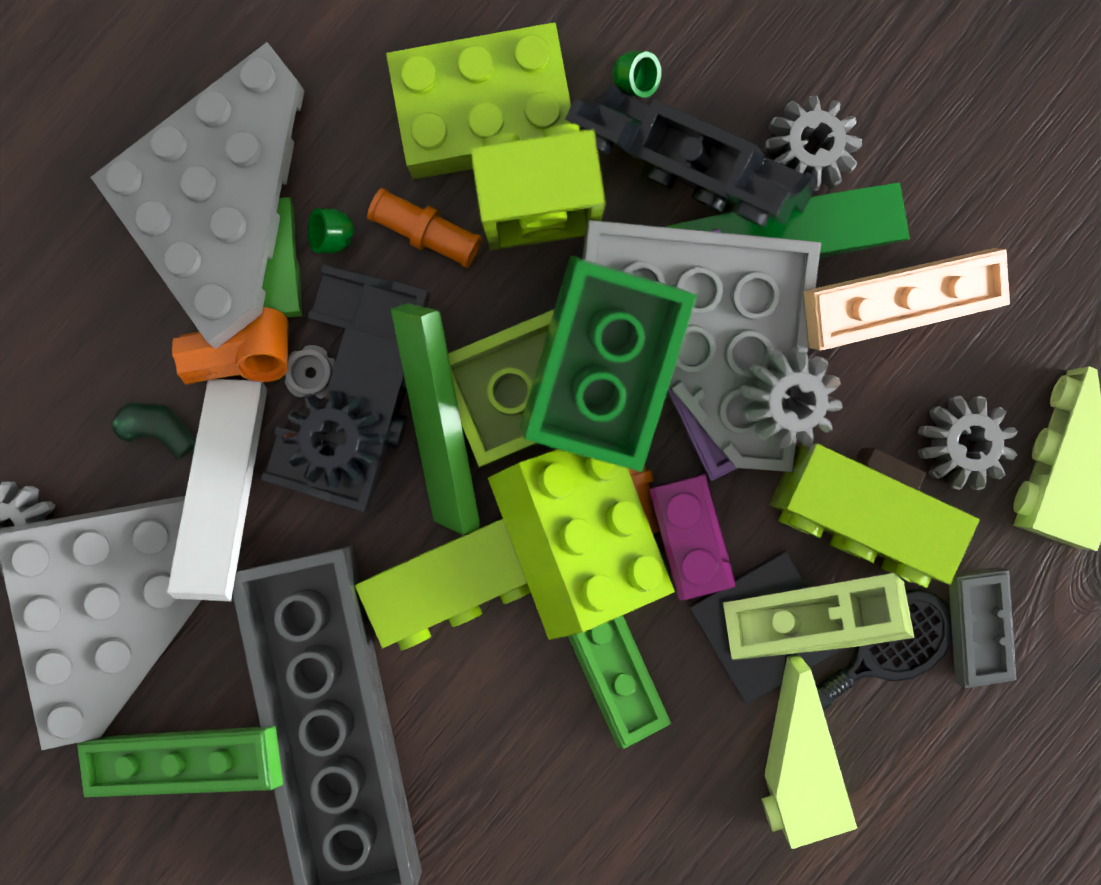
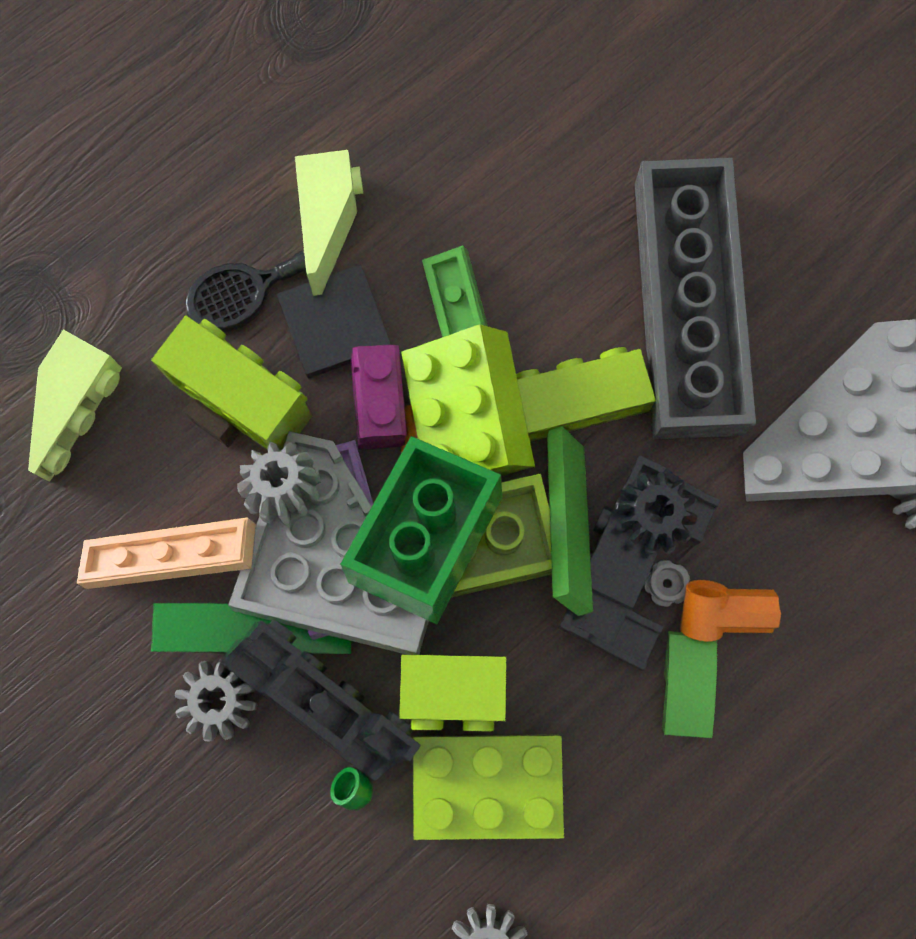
camera: 170 degrees left, 10 degrees down
(154, 420) = (803, 565): clear green arm -> none
(181, 762) = (811, 288): bright green tile -> none
(208, 191) = (733, 751): light grey plate -> none
(218, 491) = (755, 494): white tile -> none
(329, 230) = (635, 699): green hinge -> none
(424, 227) = (554, 688): orange pin -> none
(819, 618) = (292, 314): yellowish green slope -> none
(980, 428) = (137, 450): light grey gear -> none
(982, 627) = (164, 290): dark grey plate -> none

